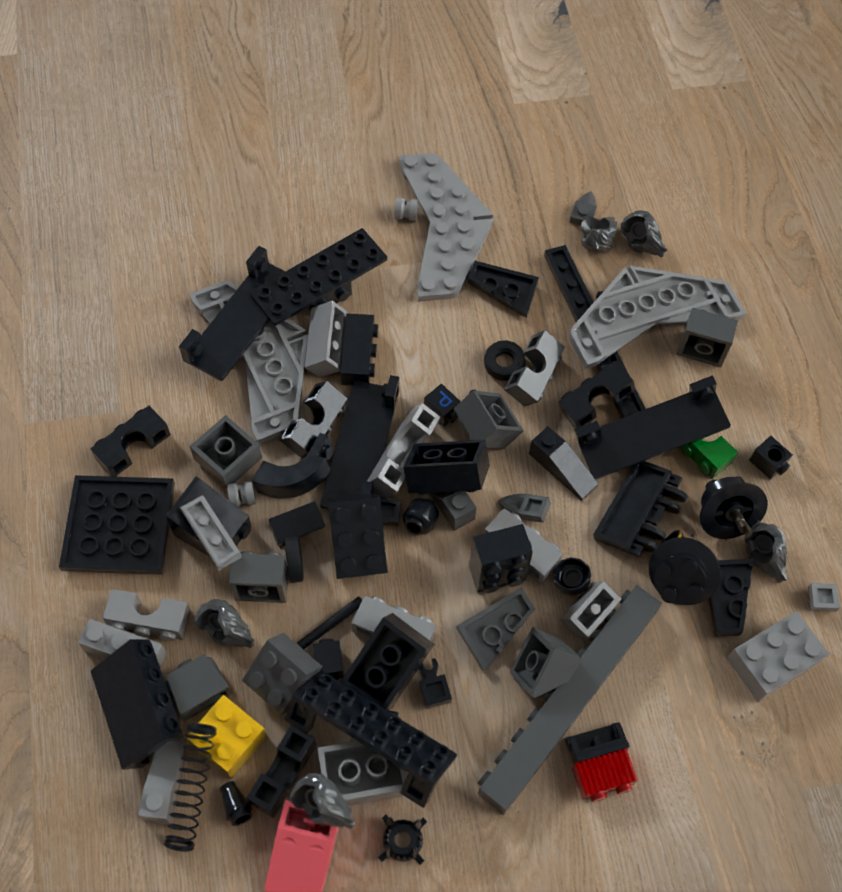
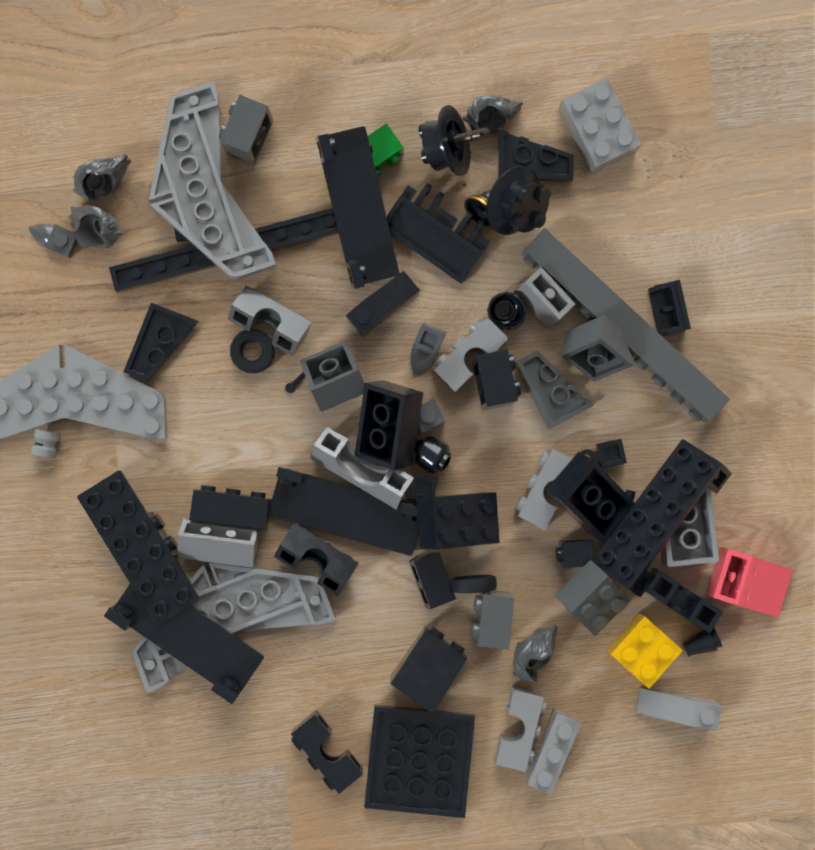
camera: 90 degrees left, 25 degrees up
(136, 702) = (614, 735): black panel -> none
(196, 686) = (592, 679): dark grey torso -> none
(202, 729) = (729, 691): black piece -> none
(211, 532) = (455, 668): light grey tile -> none
(226, 451) = (349, 652): dark grey brick -> none
(247, 493) = (395, 636): light grey wheel -> none
(298, 478) = (384, 577): black arch -> none
(321, 801) = (724, 564): dark grey hair -> none
(330, 623) = (535, 549): black bar -> none
(409, 852) = (754, 493): black piece -> none
(443, 404) = (306, 422): black brick -> none
(604, 775) = (701, 304): red brick -> none
(610, 381) = (317, 280): black arch -> none
(773, 449) = (385, 99): black brick -> none
(823, 597) = (541, 69): light grey plate -> none

